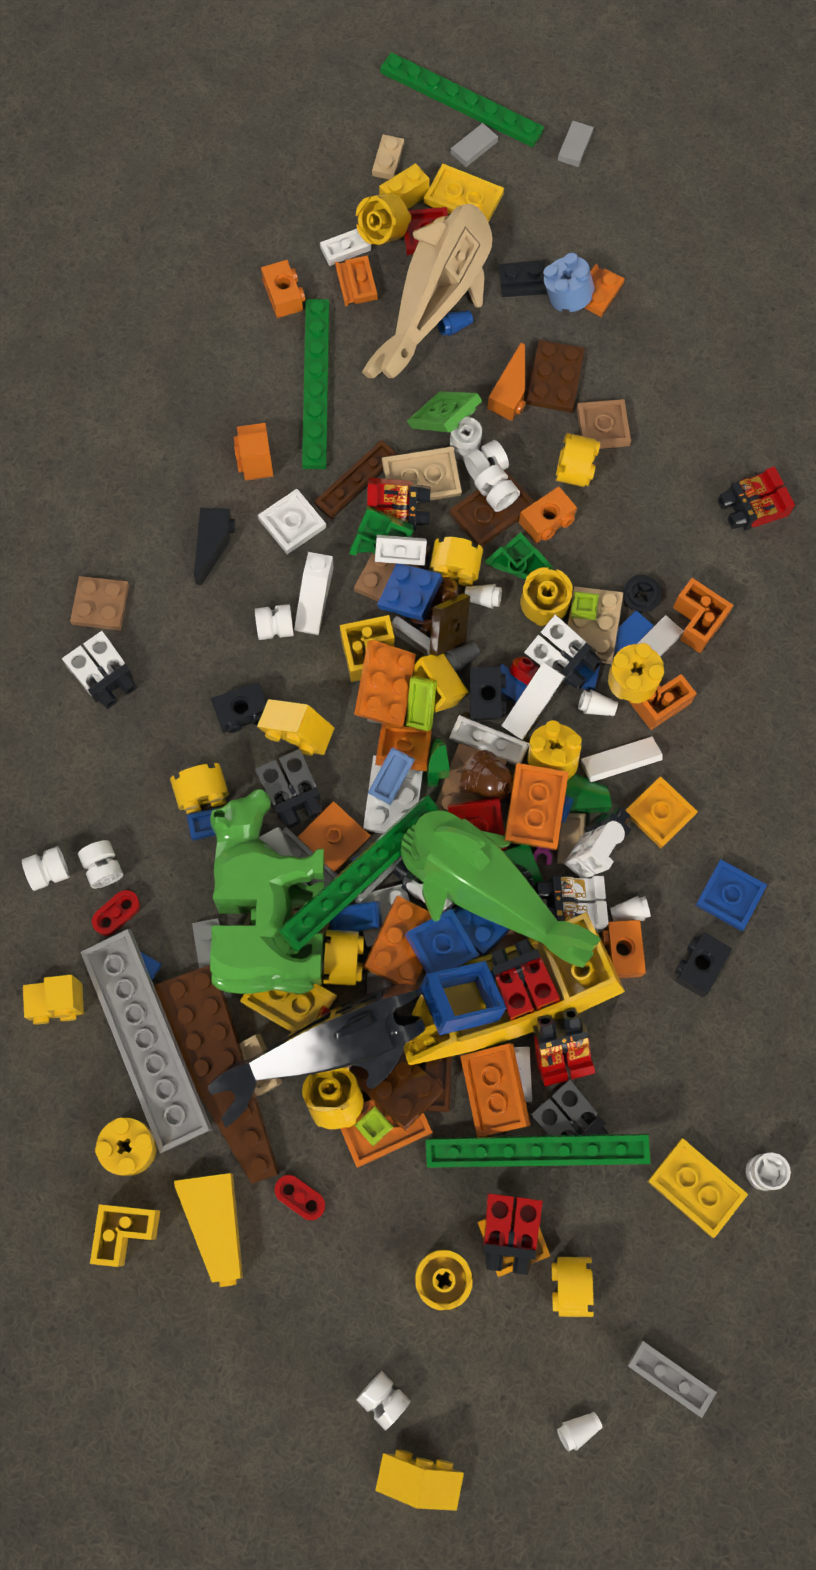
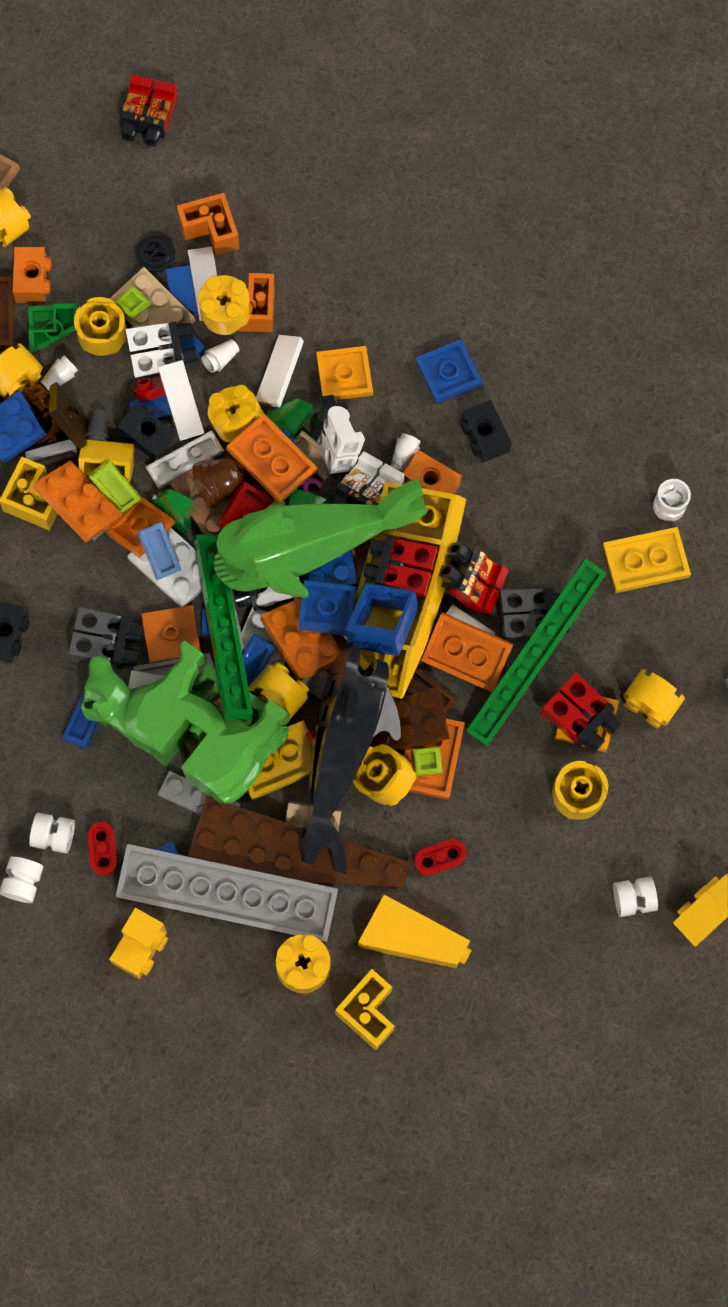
camera: 55 degrees left, 0 degrees up
(199, 787) = (49, 708): yellow brick -> none
(297, 725) = (56, 593): yellow brick -> none

